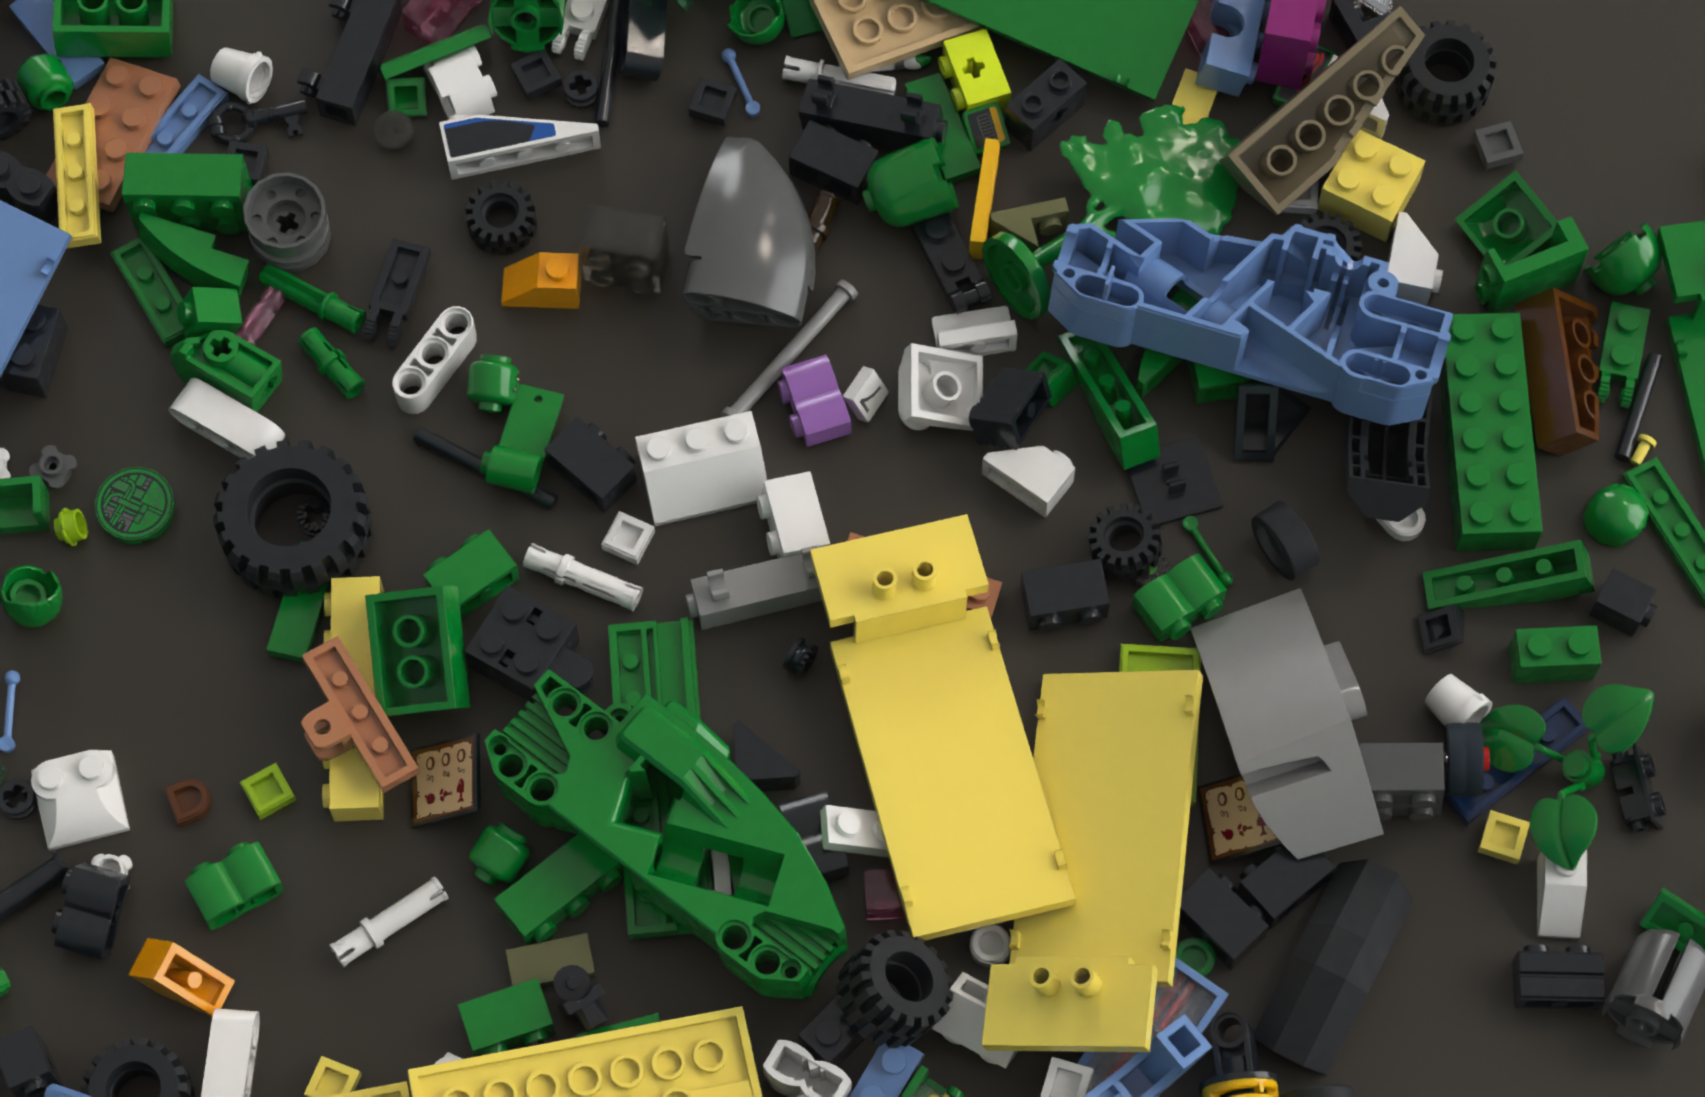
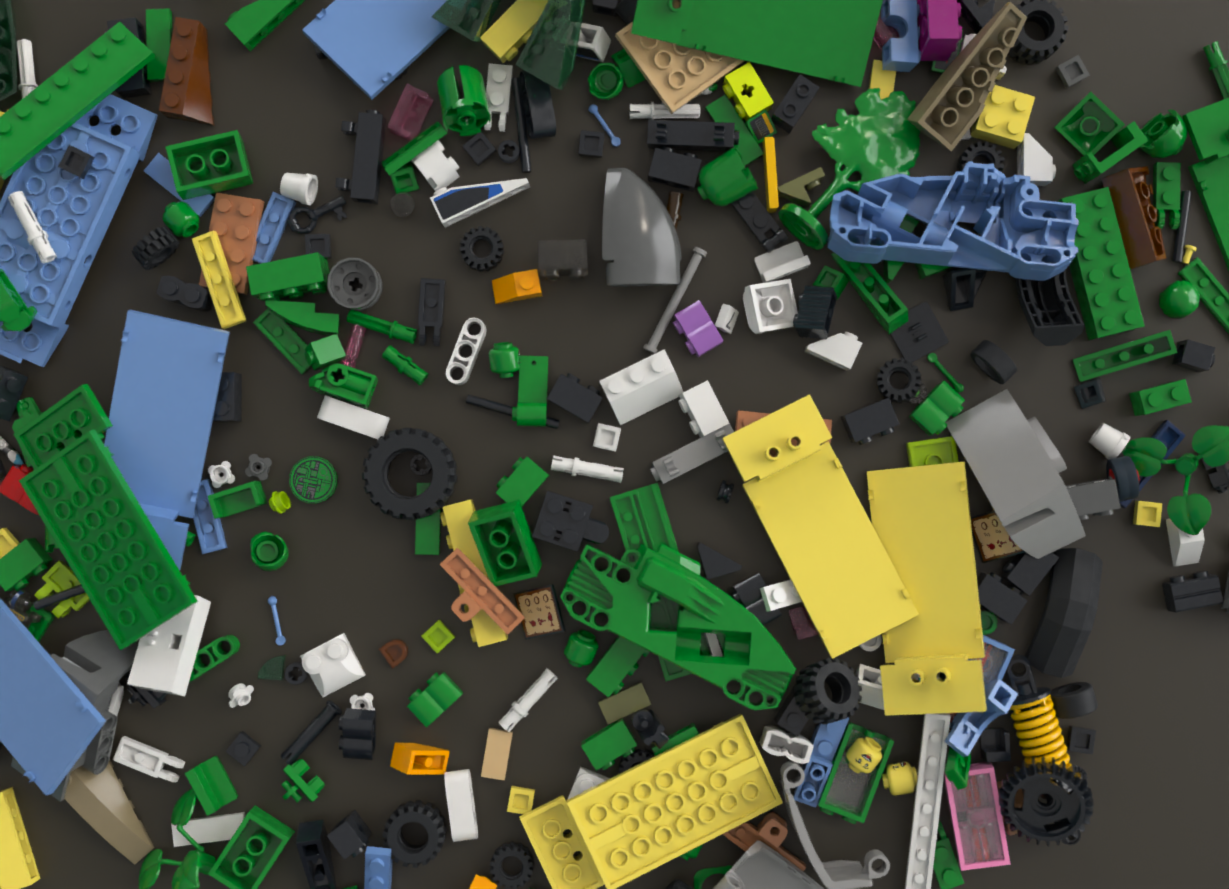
camera: 15 degrees left, 20 degrees up
(313, 1001) = (496, 754): none -> tan tile

